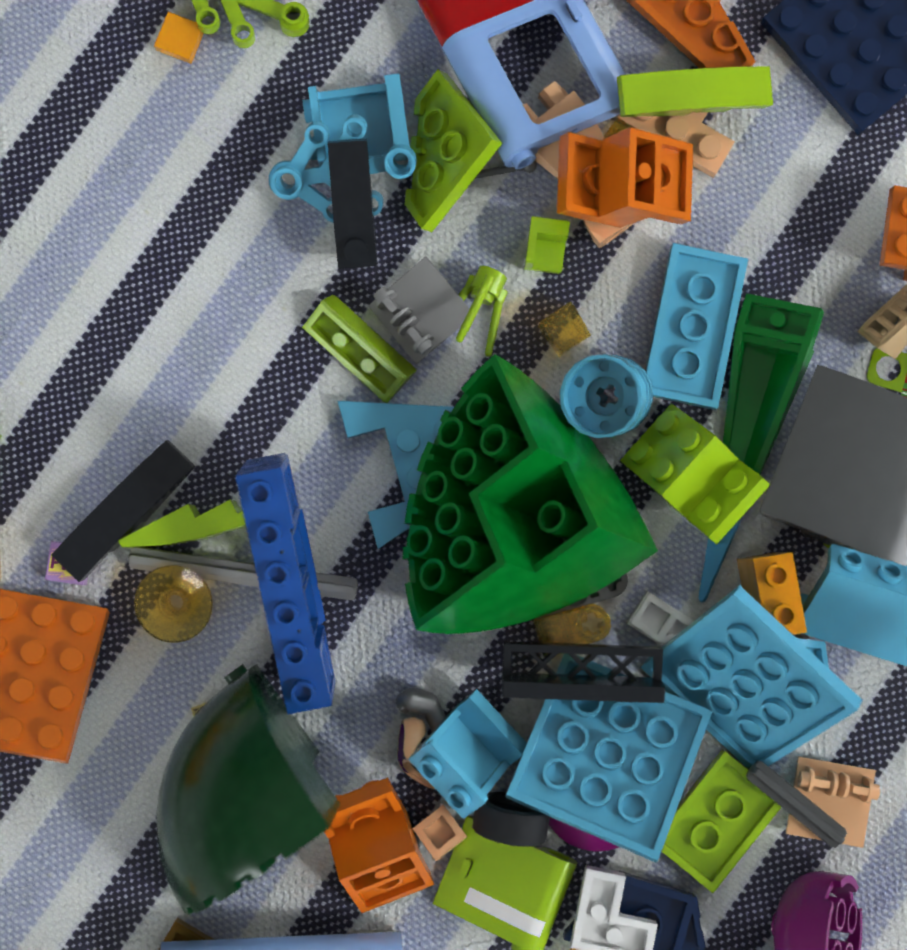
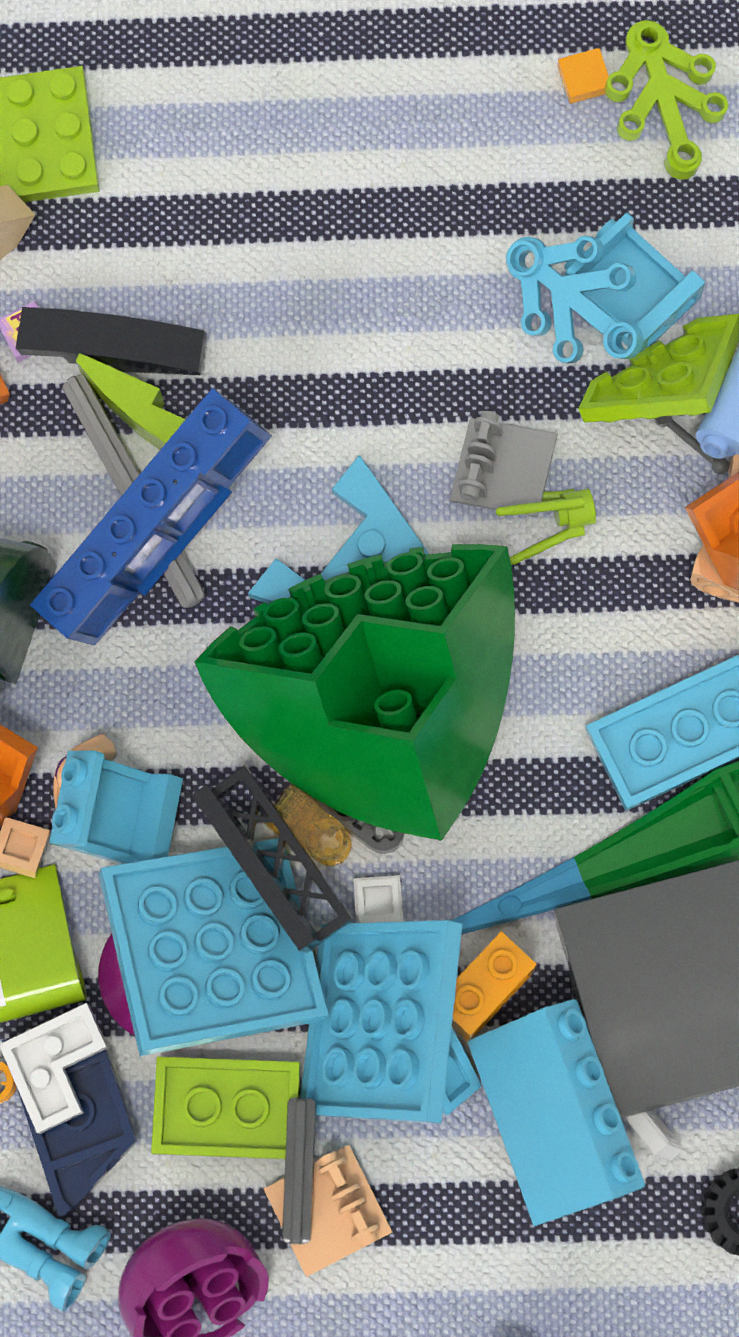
camera: 60 degrees right, 10 degrees down
(158, 614) = (46, 431): clear yellow dish -> none
(352, 203) = (549, 329): black slope -> none
(359, 348) = (424, 440): lime slope -> none
(422, 703) = (131, 740): flat silver arm -> none
(510, 822) = (79, 898): black tyre -> none
(546, 245) = (655, 534): lime panel -> none
(564, 329) = (590, 610): clear yellow slope -> none
(585, 401) = (538, 671): medium azure wheel -> none
(695, 473) = (545, 826): lime bracket -> none

